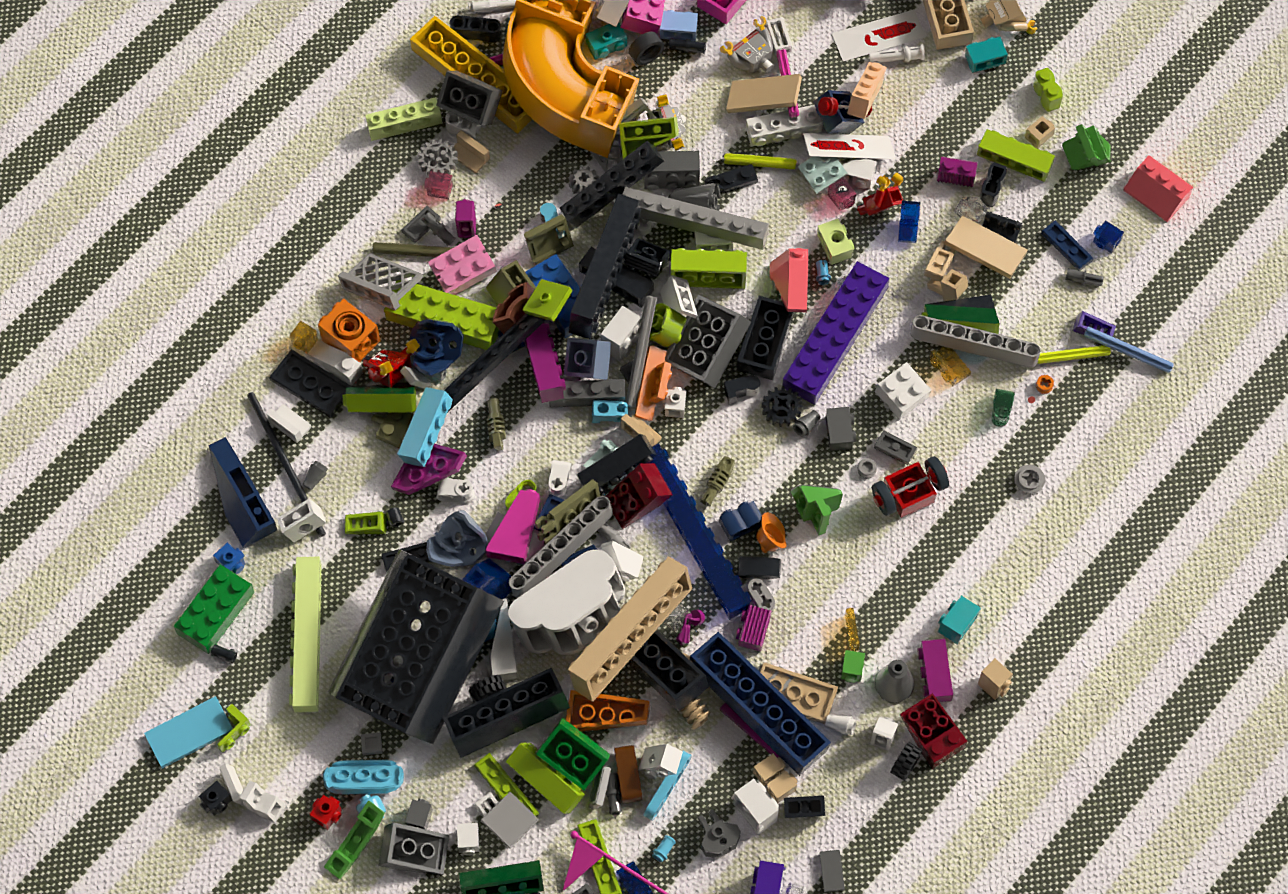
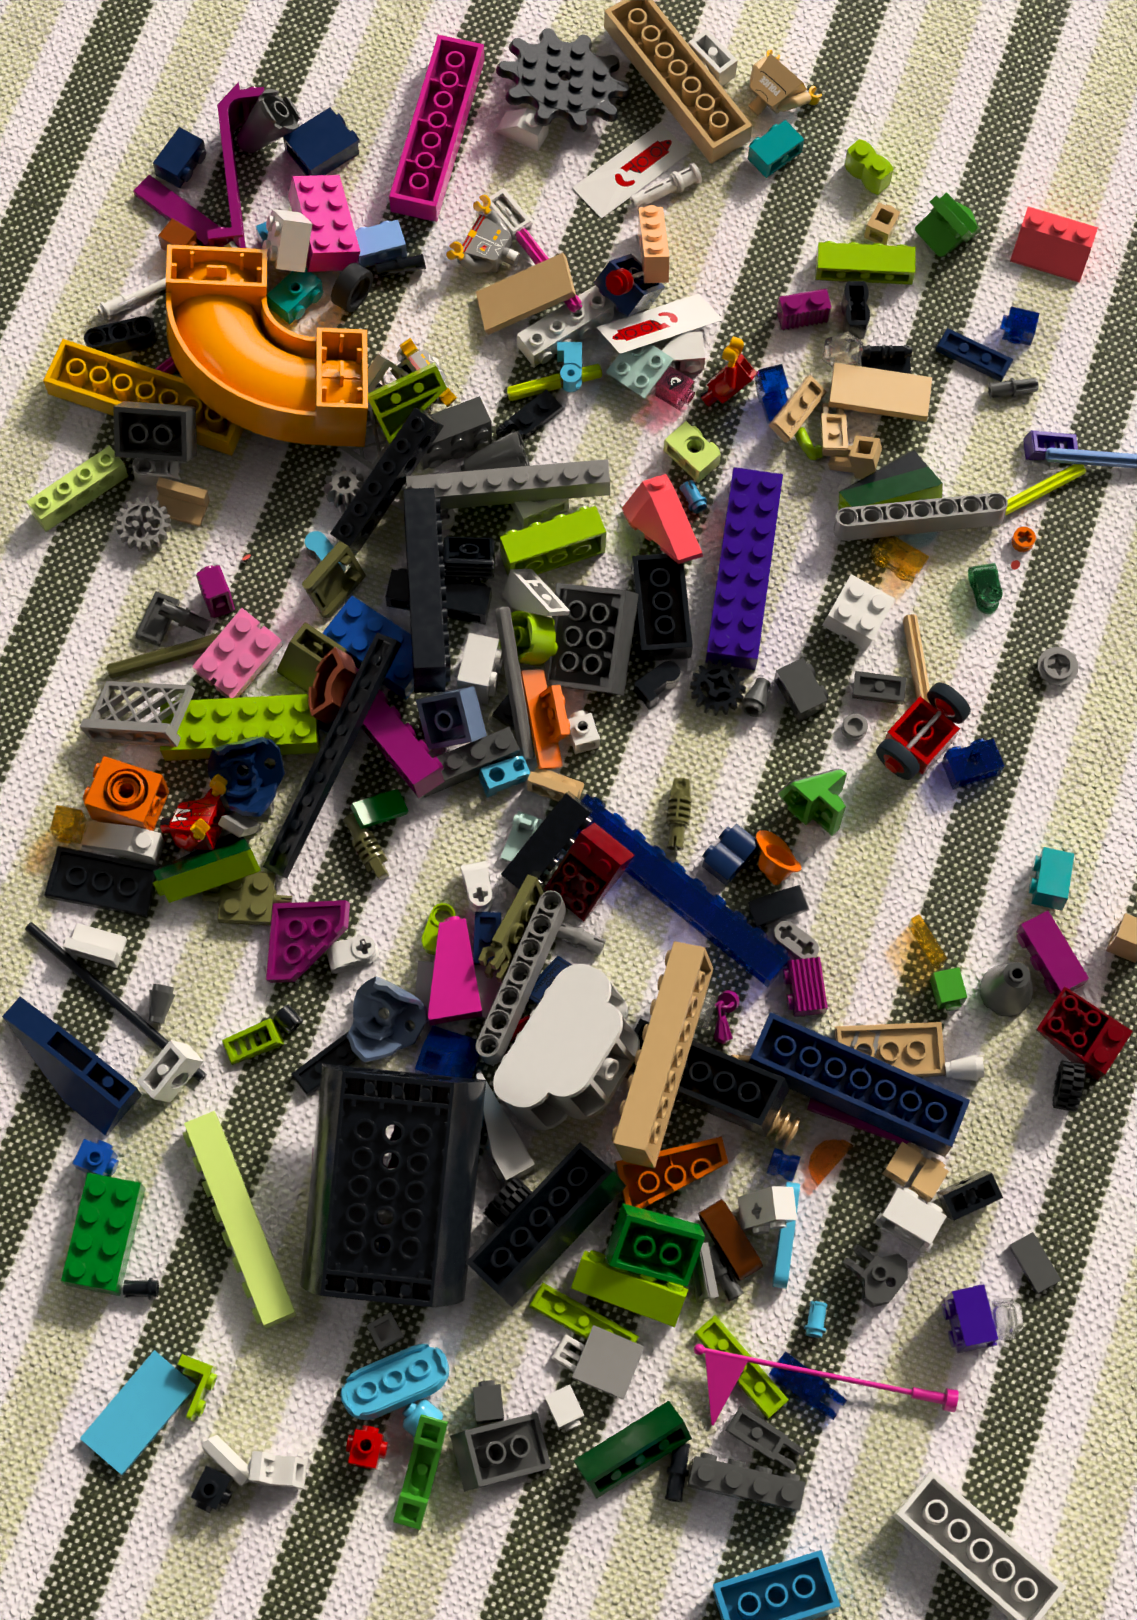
camera: 25 degrees left, 5 degrees up
(425, 427) = (280, 886): medium azure brick -> none
(439, 185) = (160, 559): clear pink brick -> none
(514, 402) = (379, 808): none -> green tile
(547, 300) = (373, 661): lime plate -> none
(626, 560) = (613, 962): white slope -> none
(686, 738) = (783, 1164): none -> clear blue wheel
(719, 746) = (826, 1157): none -> clear orange tile
(774, 156) = (571, 372): none -> medium azure leg
(884, 733) = (1025, 1060): white slope -> none
(917, 264) = (806, 445): none -> lime arm
(922, 238) = (797, 408): none -> tan tile
(930, 527) = (964, 773): none -> clear blue brick
(932, 435) = (916, 656): none -> tan axle

